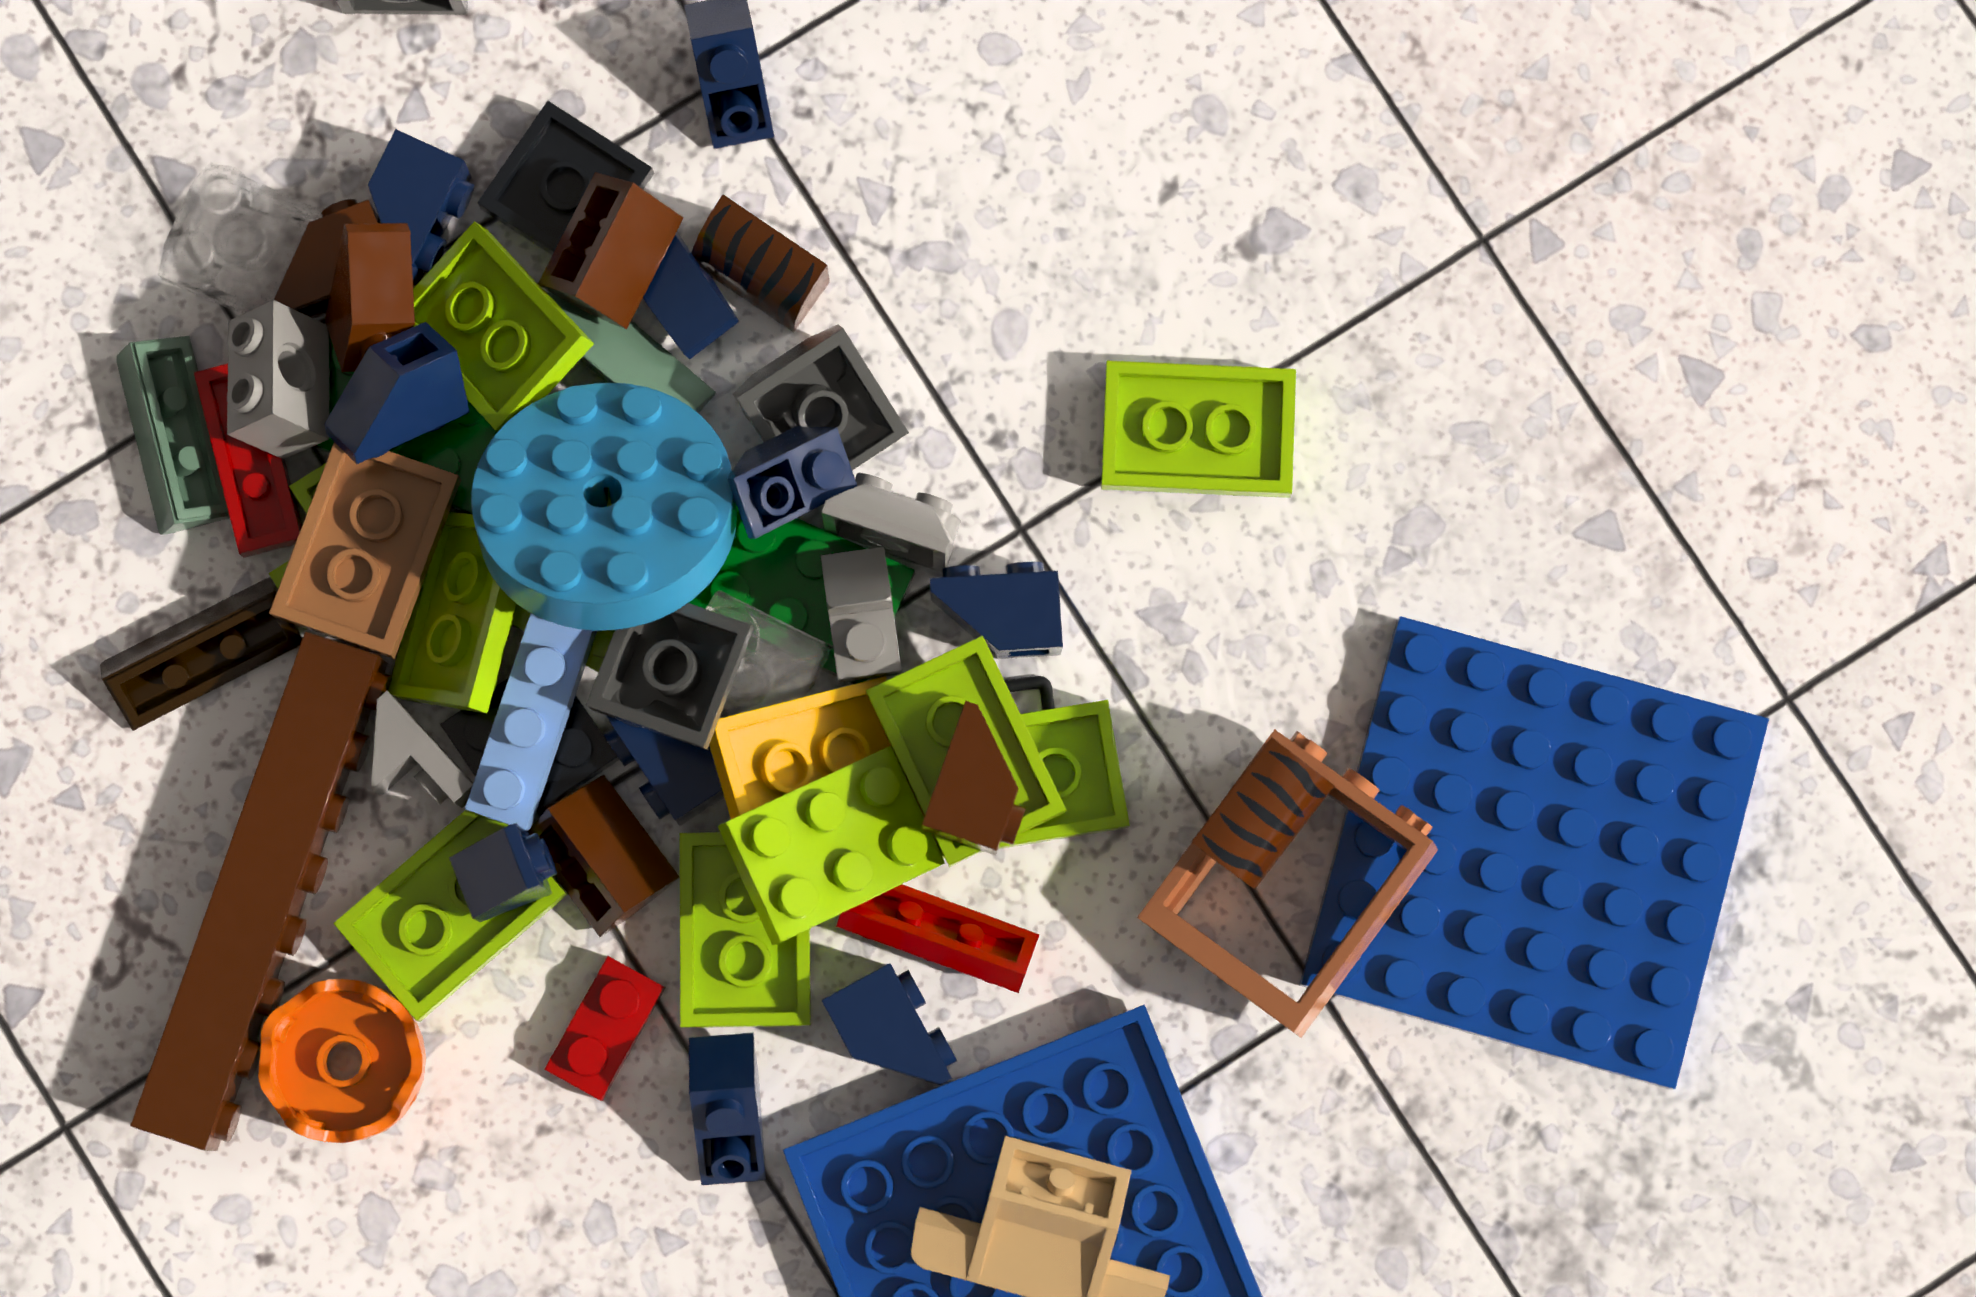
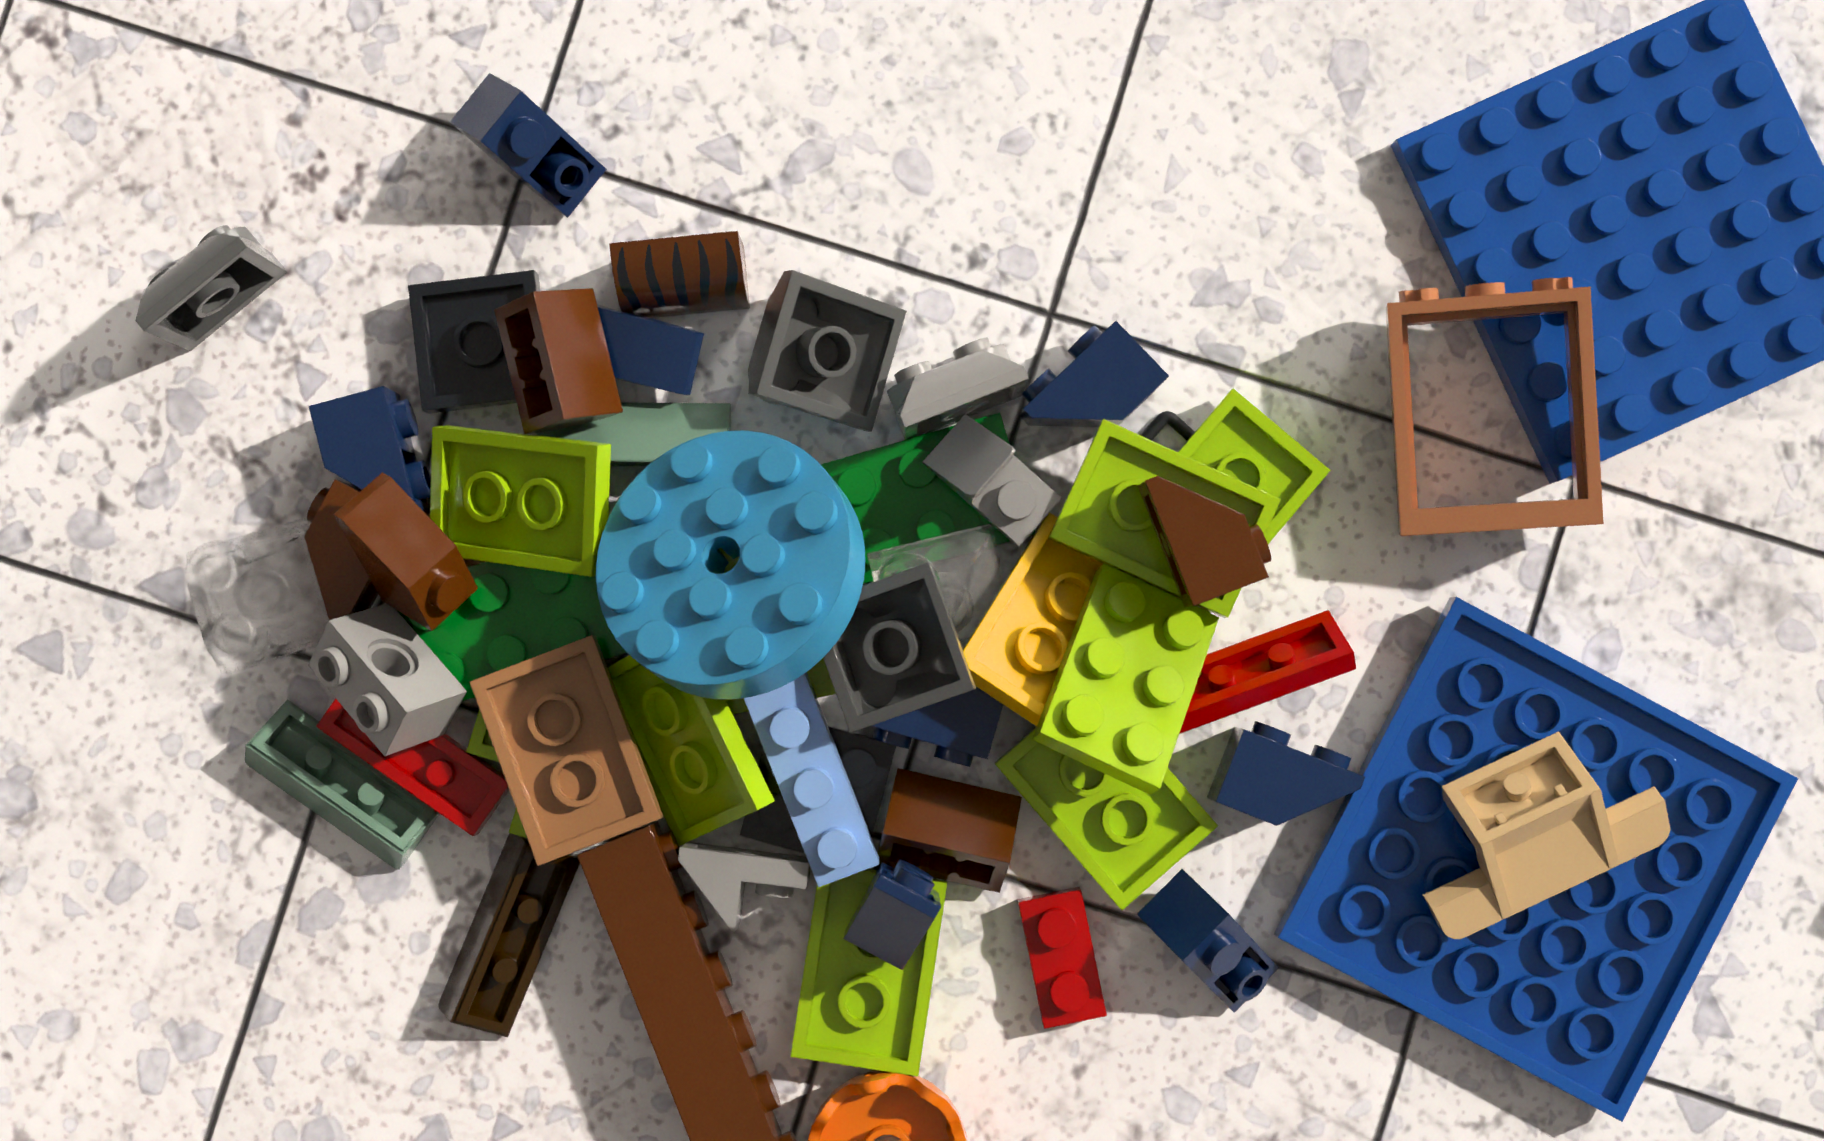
camera: 35 degrees left, 5 degrees up
(398, 393) = (491, 612): dark blue slope -> none
(789, 477) = (854, 420): dark blue slope -> none
(1198, 429) = (1124, 123): lime plate -> none
(1262, 813) = (1441, 374): reddish brown brick -> none

